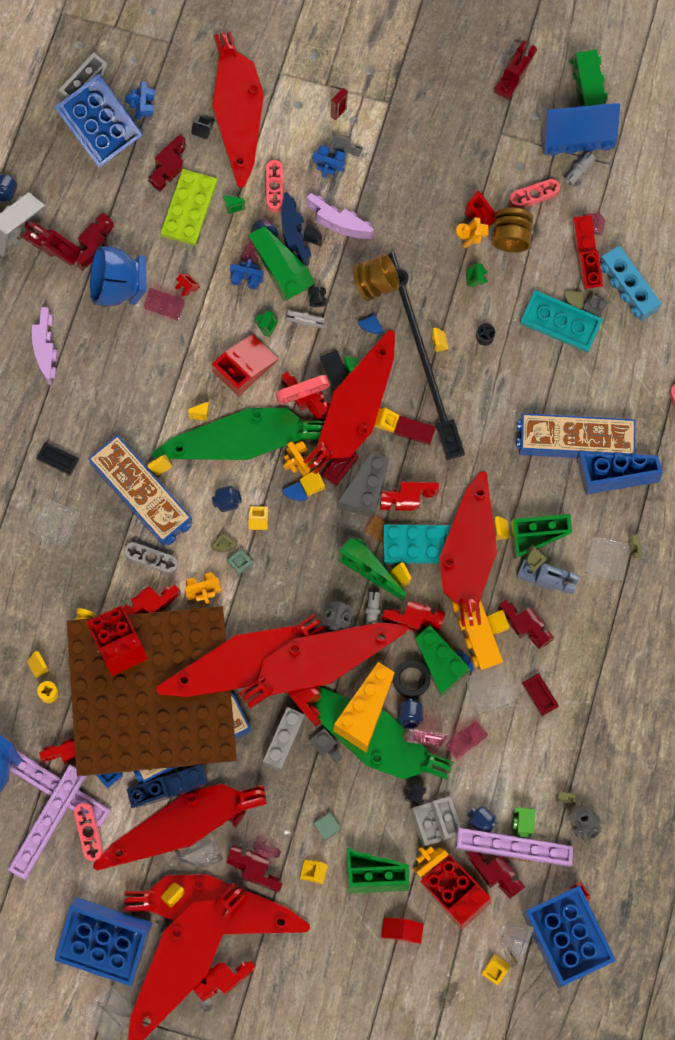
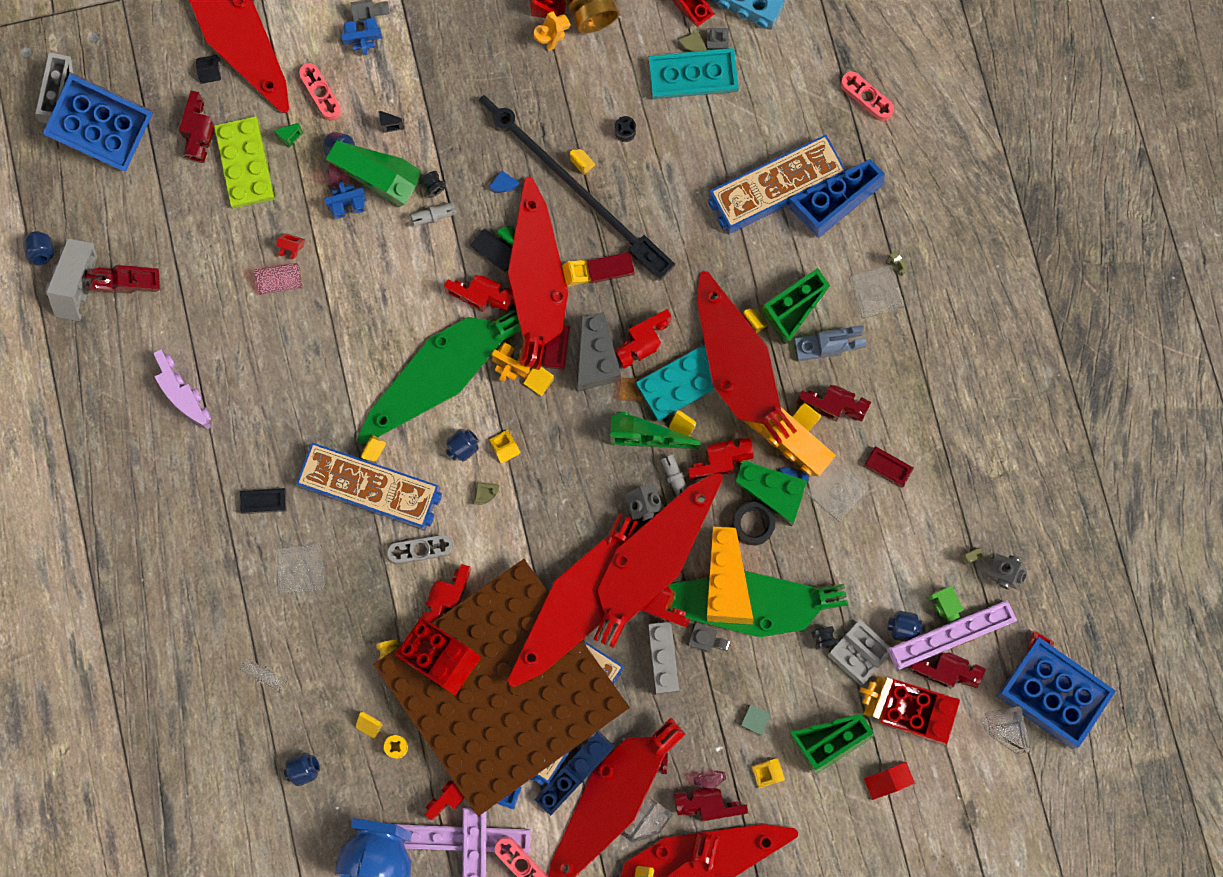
camera: 25 degrees left, 5 degrees up
(92, 239) = (166, 252): dark red plate -> none
(116, 277) = (214, 278): blue plate -> none
(139, 98) = (124, 76): blue hips -> none
(199, 412) = (381, 371): yellow slope -> none
(204, 589) = (493, 552): light orange hips -> none
(239, 562) = (512, 502): sand green tile -> none
(243, 364) = (398, 296): slope -> none
(266, 323) = (395, 240): green tile -> none
(292, 229) = (362, 122): dark blue slope -> none
(295, 492) = (527, 399): blue tile -> none
(302, 389) = (475, 290): coral beam -> none
(345, 223) = (415, 91): lavender slope -> none
(375, 277) = (481, 131): pearl gold wheel -> none
(410, 713) = (773, 559): dark blue head -> none
(423, 737) = (800, 575): clear pink slope -> none
(466, 740) = (843, 554): clear pink slope -> none
(475, 275) = (580, 73): green tile -> none
(496, 969) = (1002, 765): yellow slope -> none
(534, 558) = (807, 332): olive tile -> none

